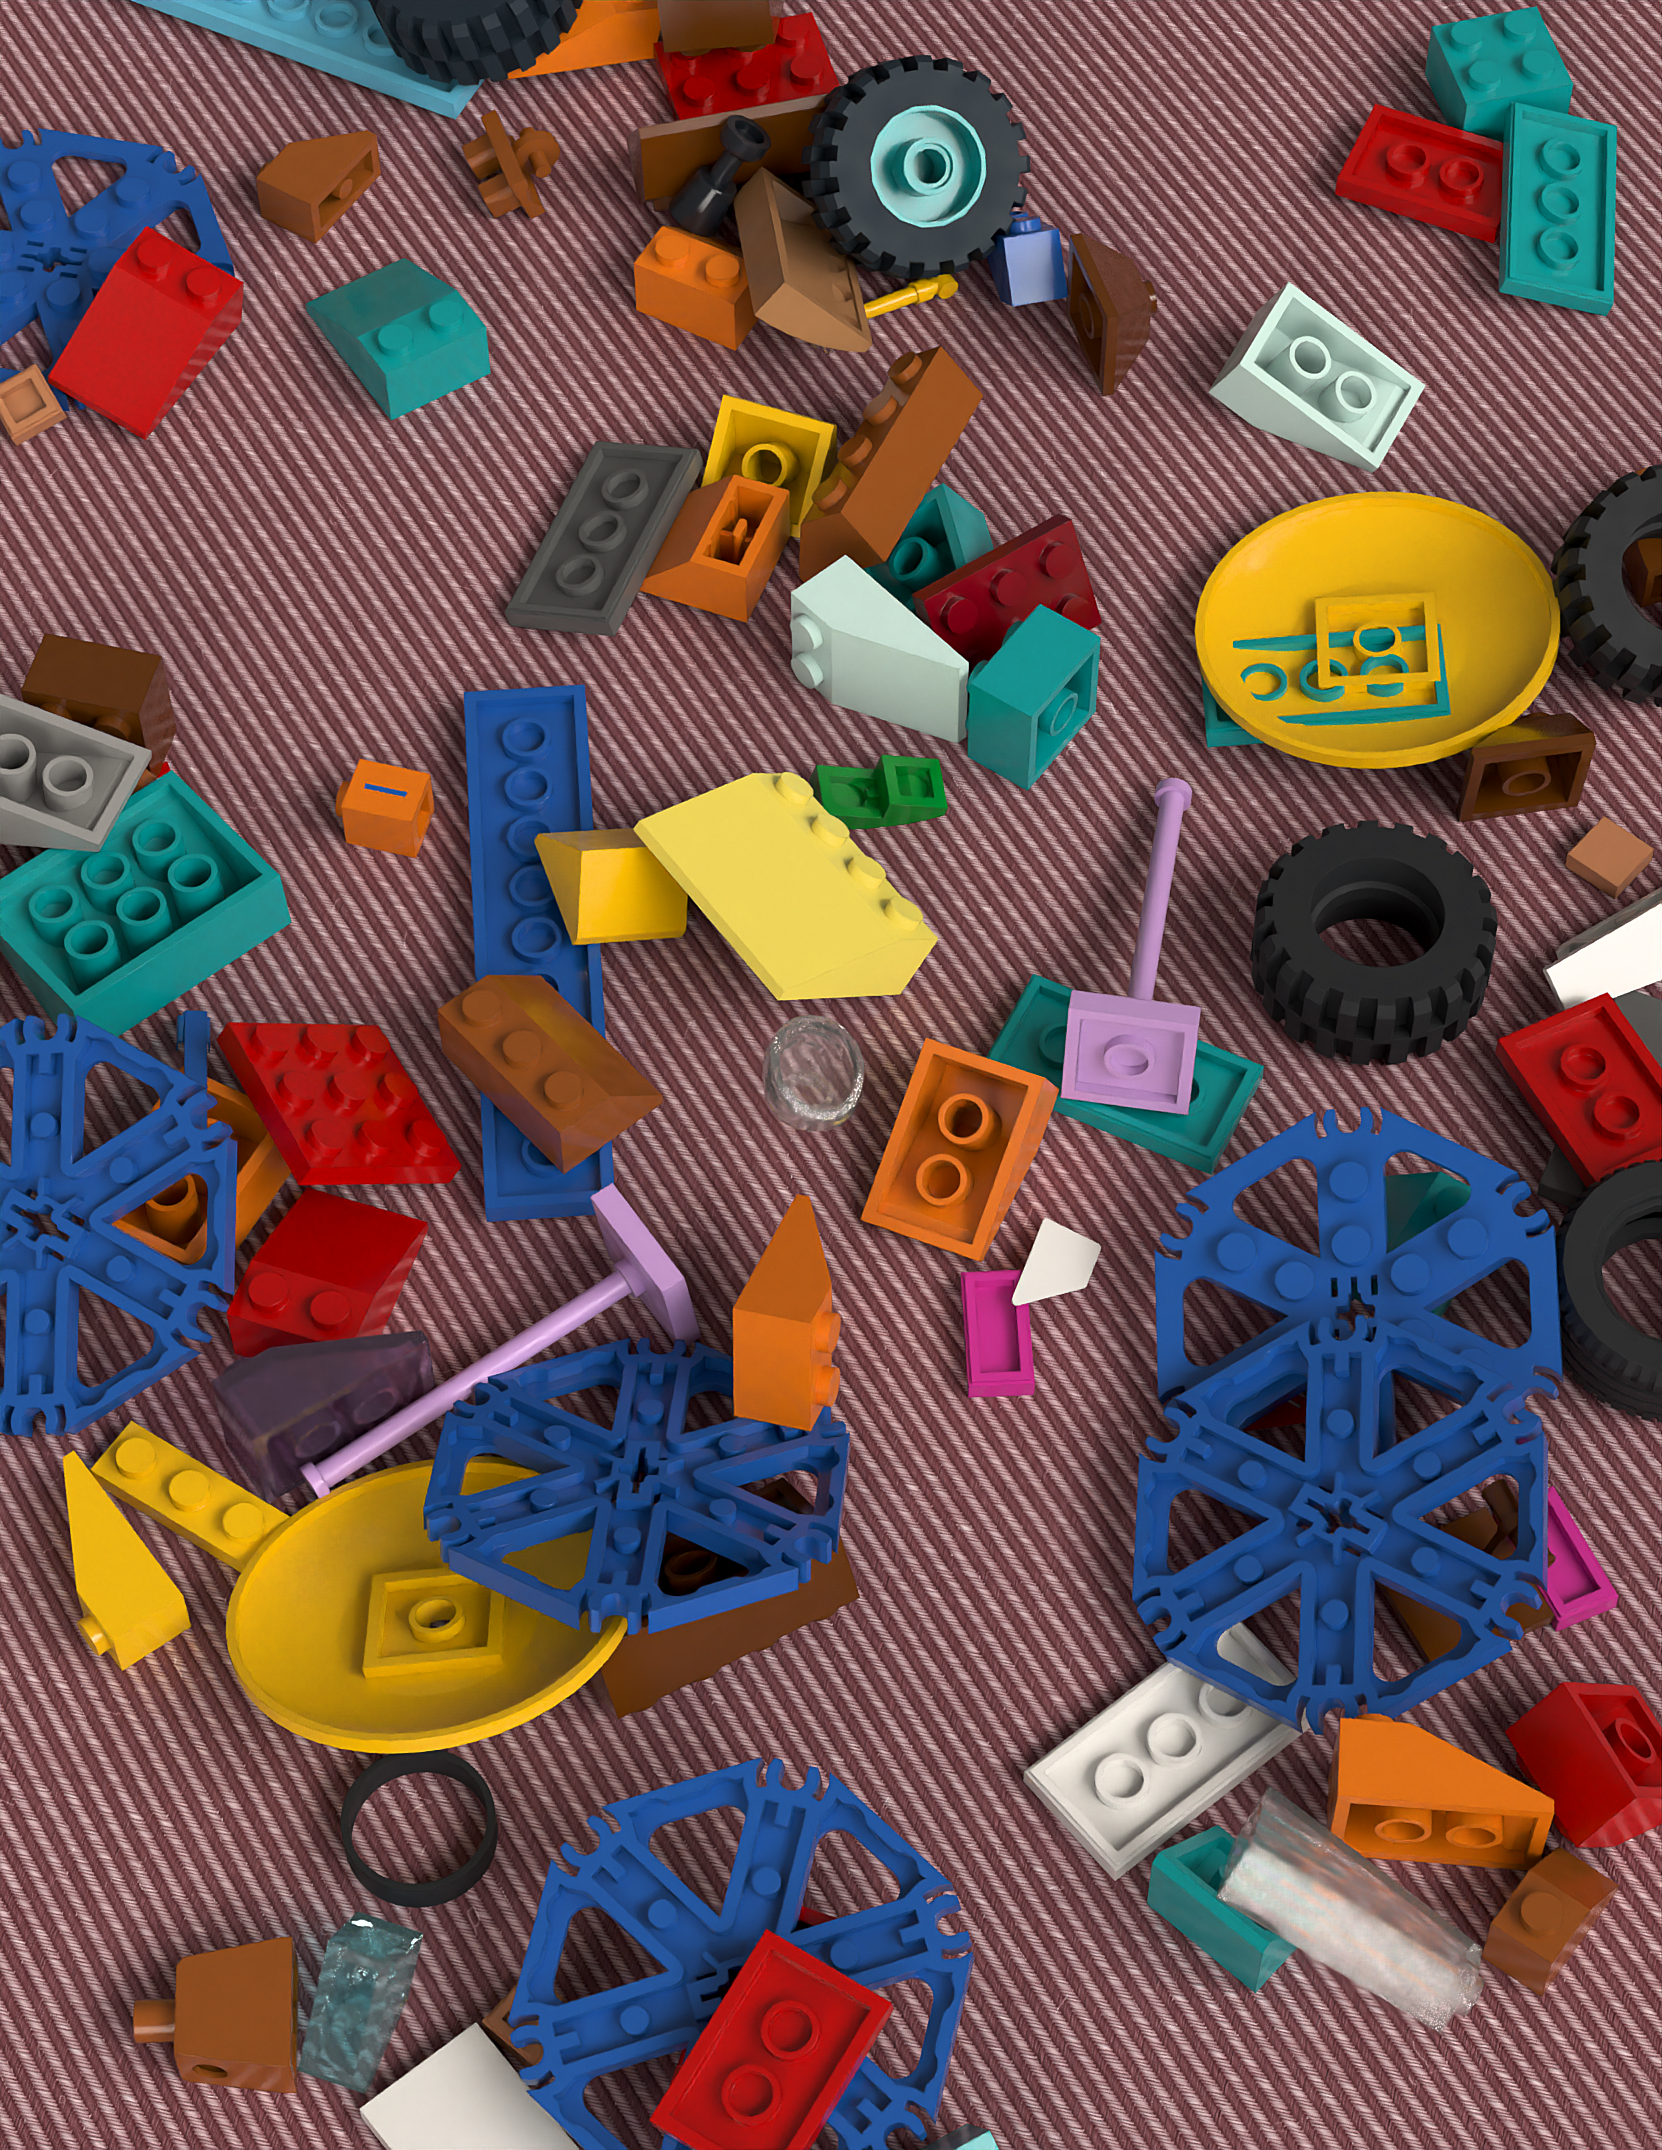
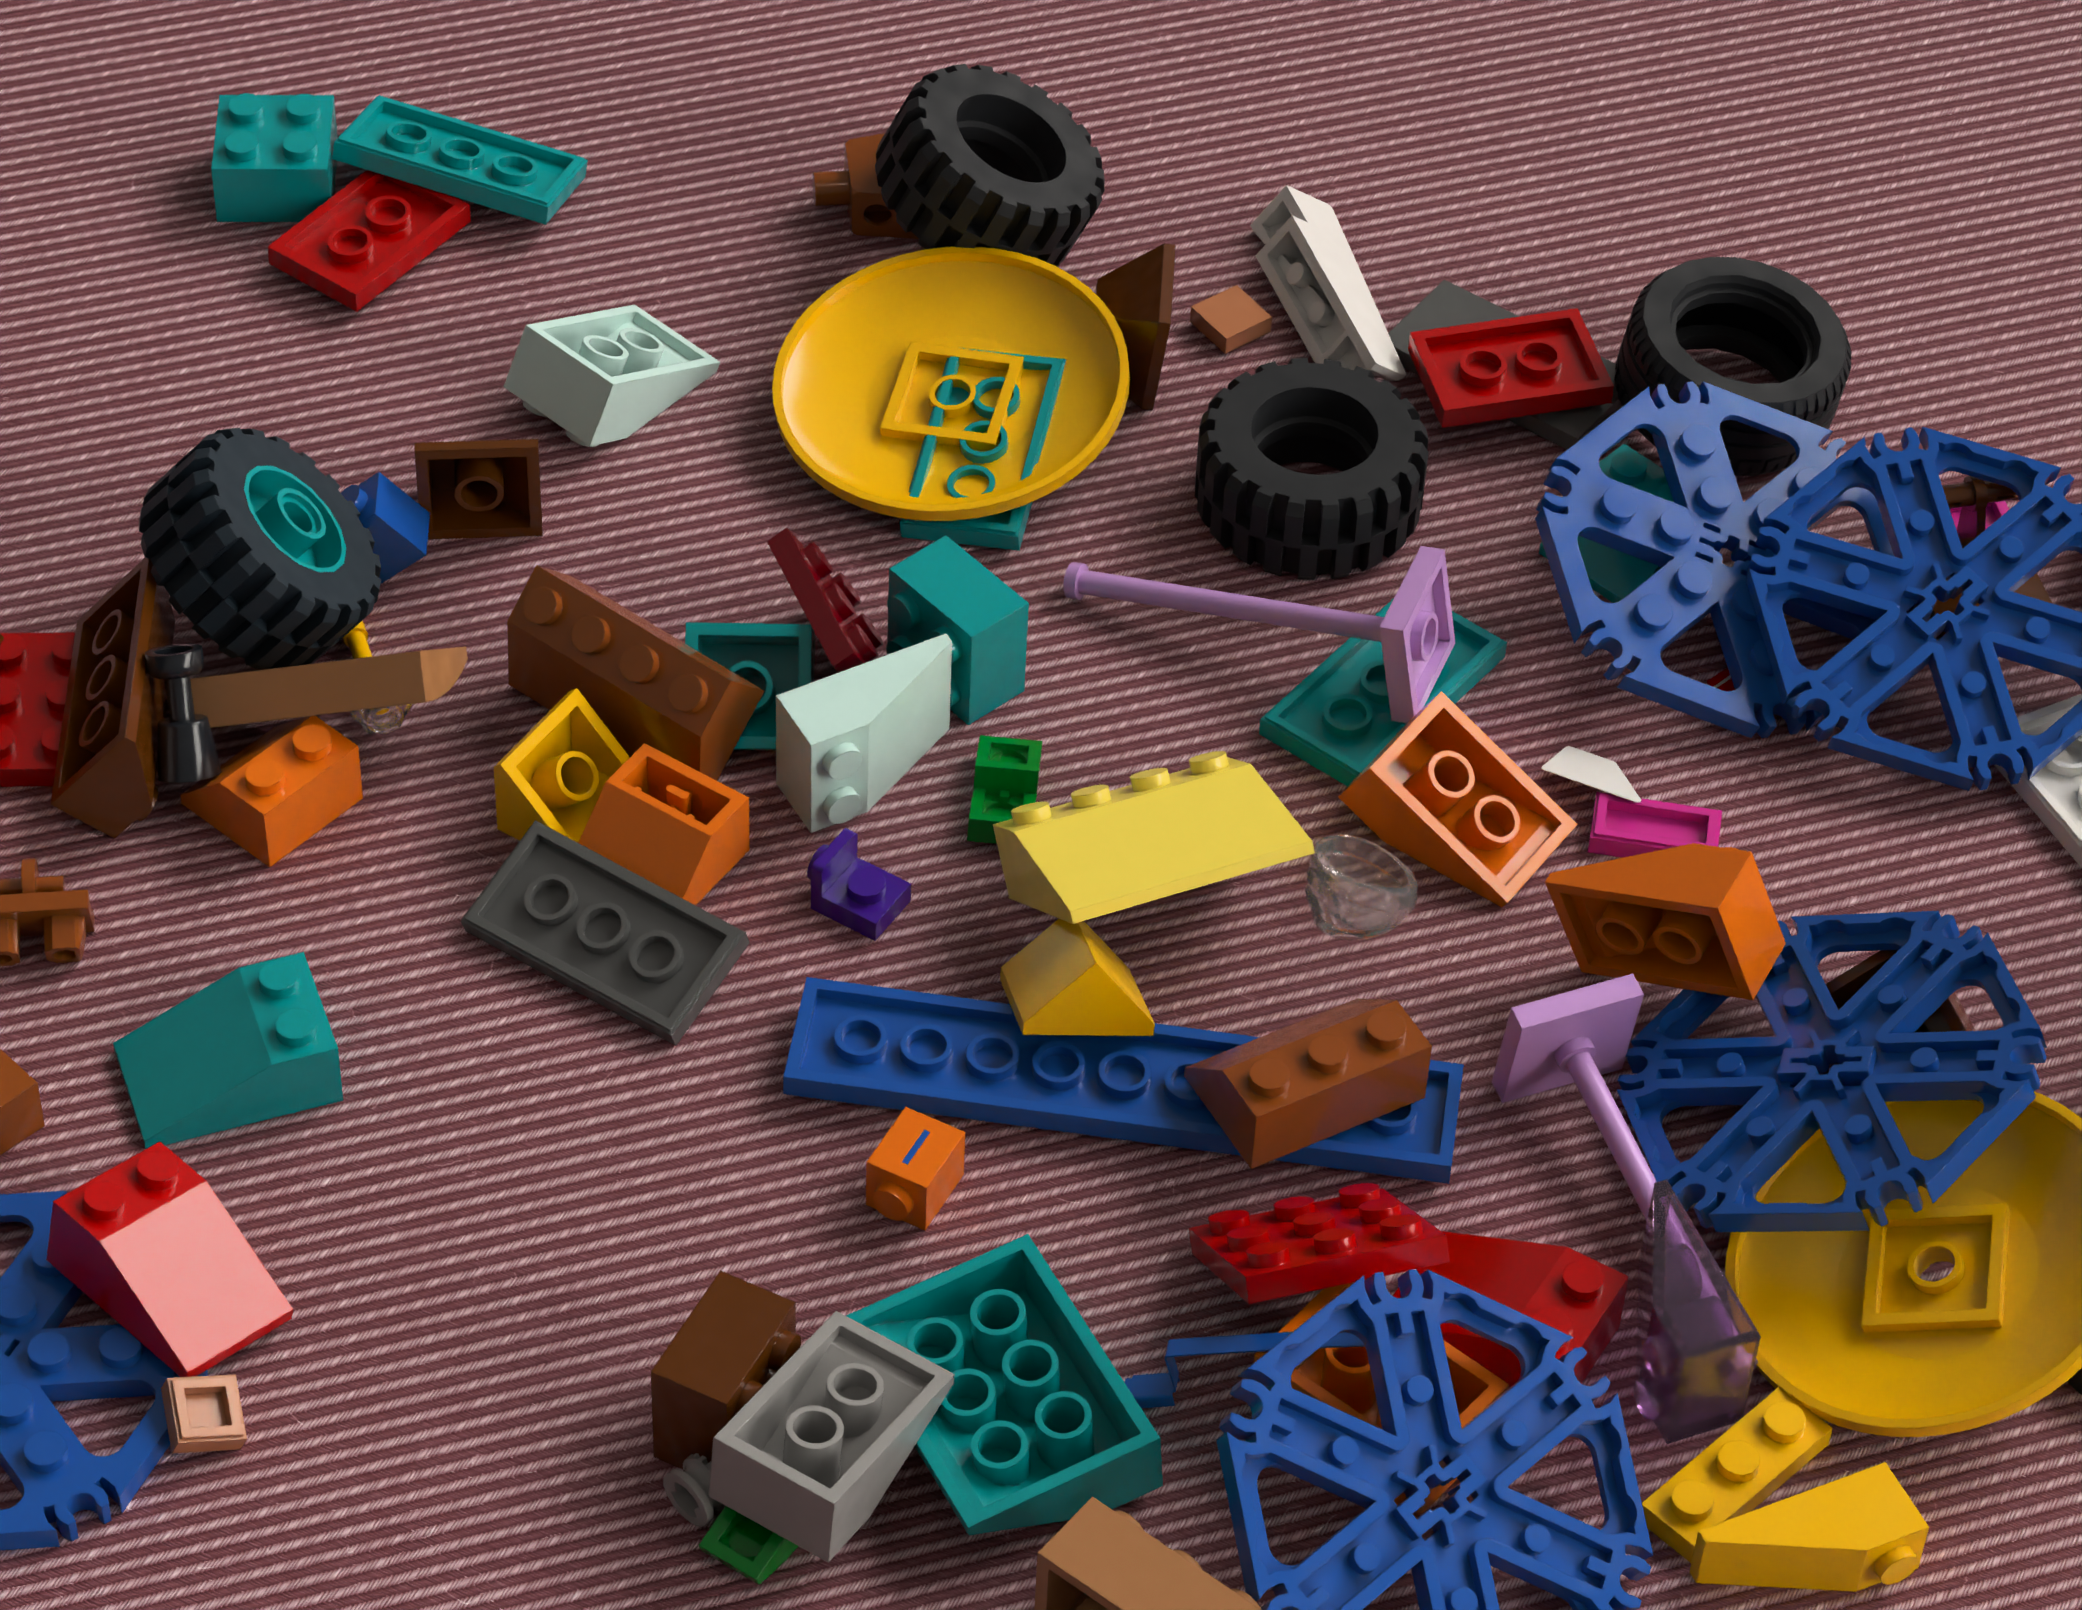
camera: 80 degrees left, 10 degrees down
(717, 703) = (853, 889): none -> dark purple bracket

